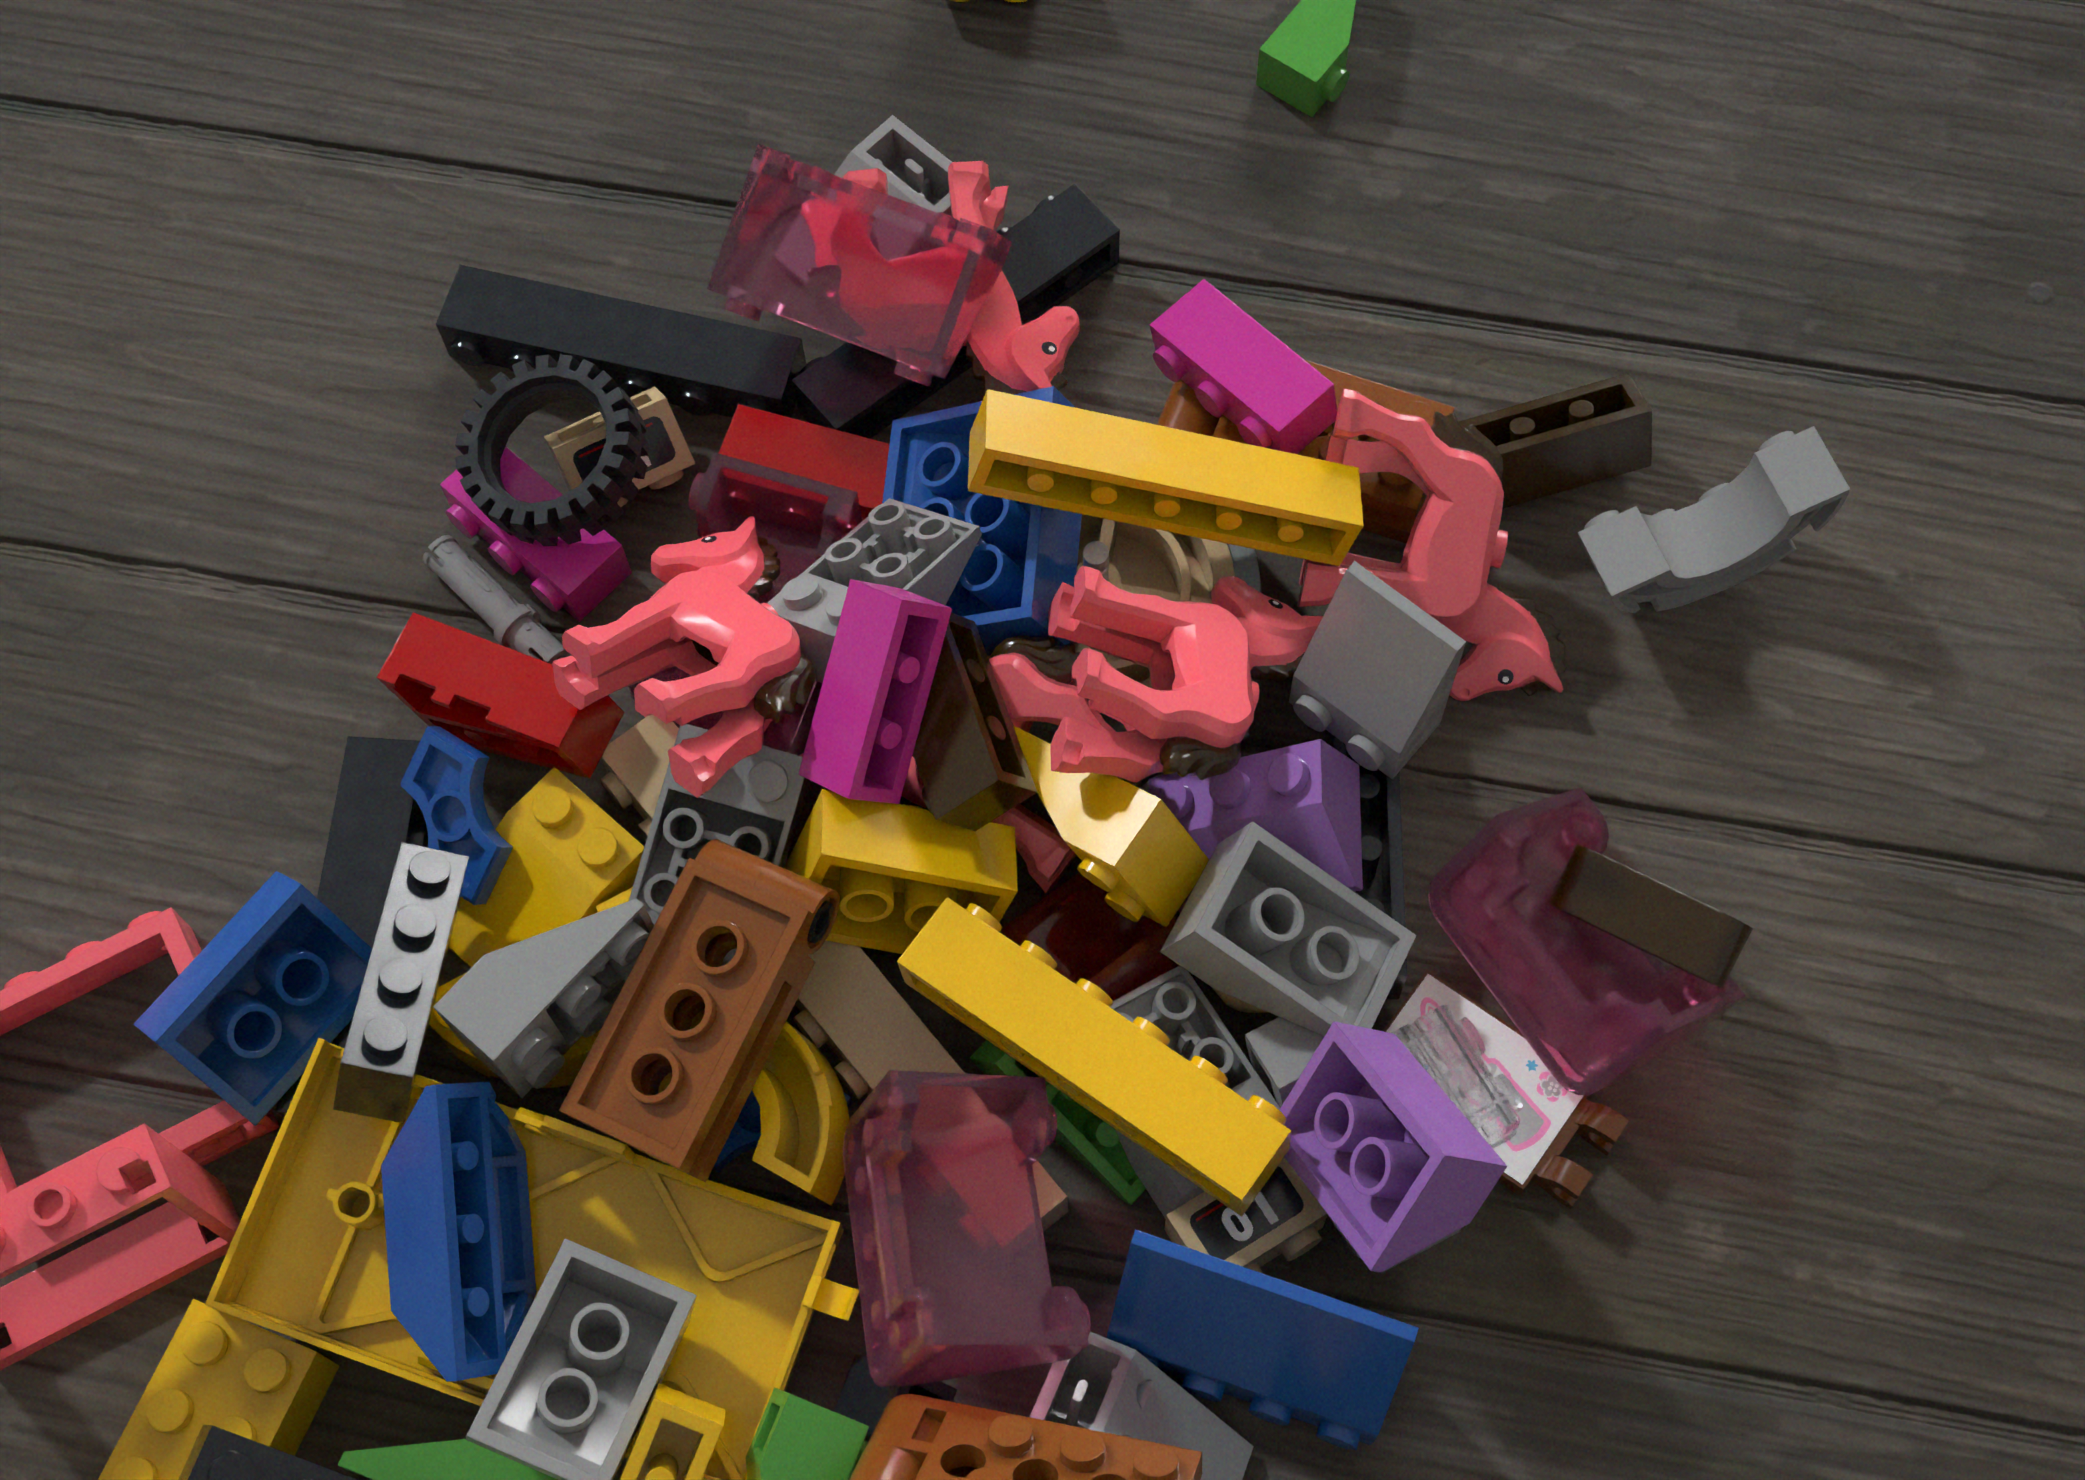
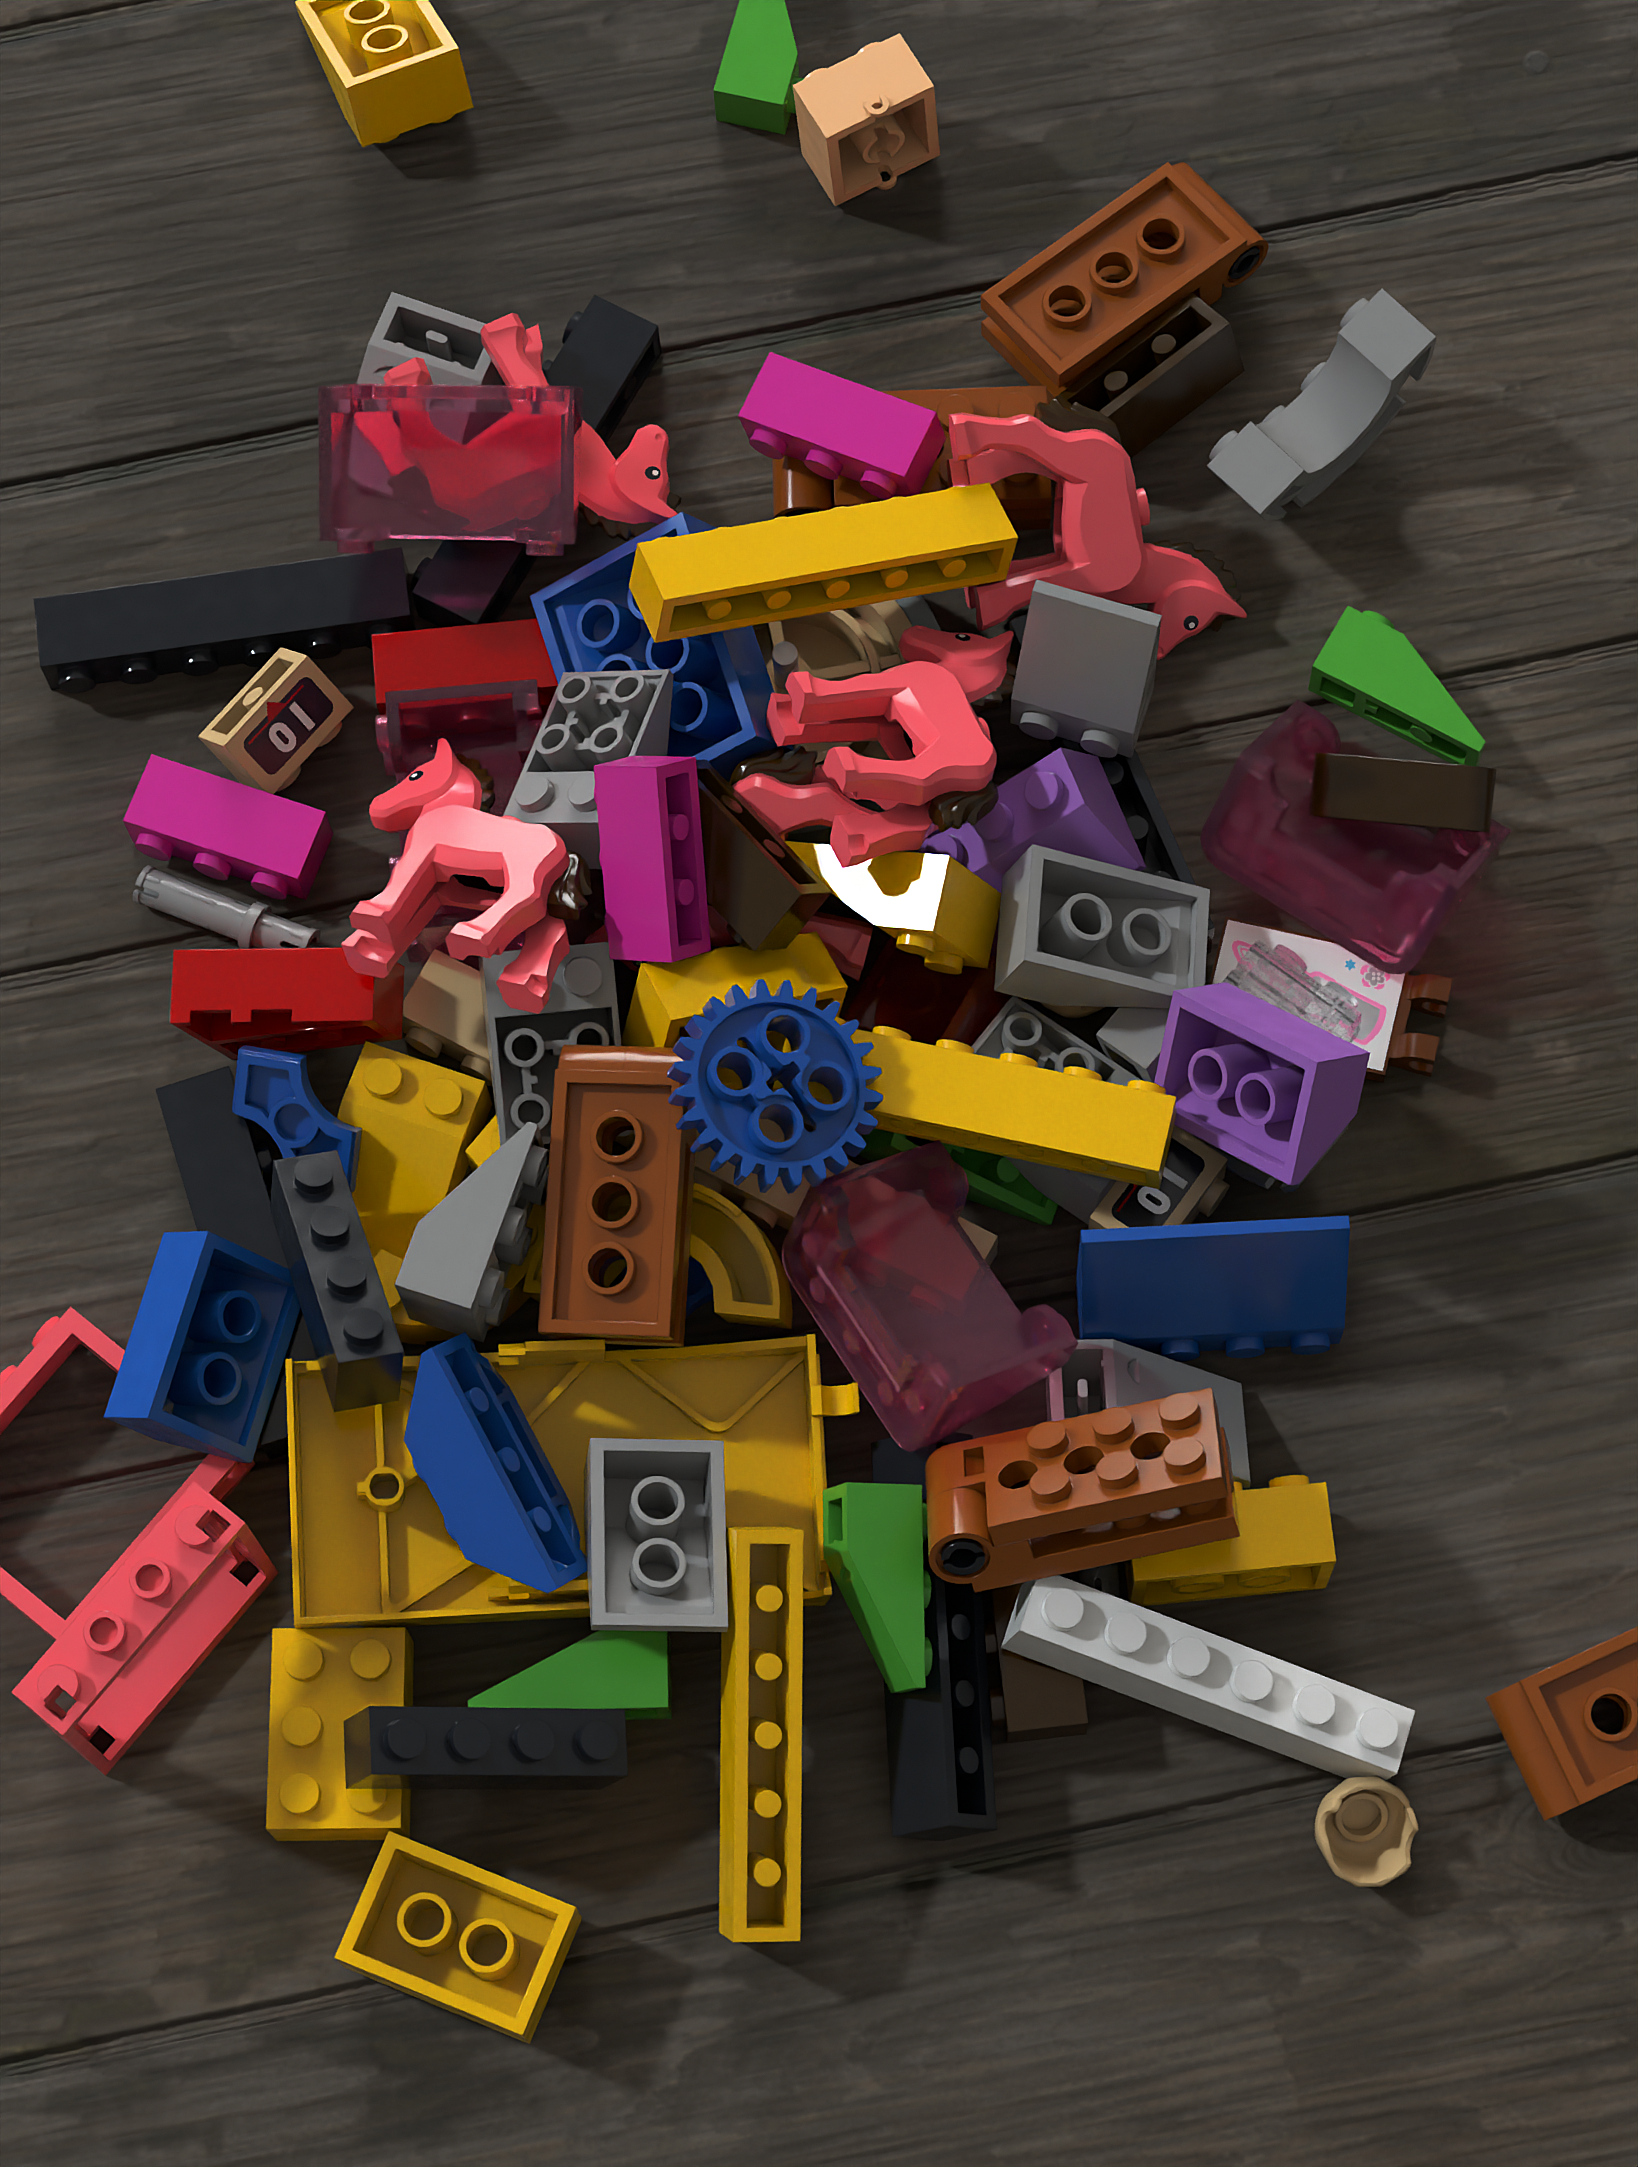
camera: 20 degrees left, 5 degrees up
(505, 412) = (173, 702): black tyre -> none
(830, 972) = (731, 1117): none -> blue gear
(1387, 119) = (867, 119): none -> light nougat brick
(1565, 334) = (1118, 276): none -> dark orange hinge
(1676, 806) = (1387, 682): none -> bright green slope

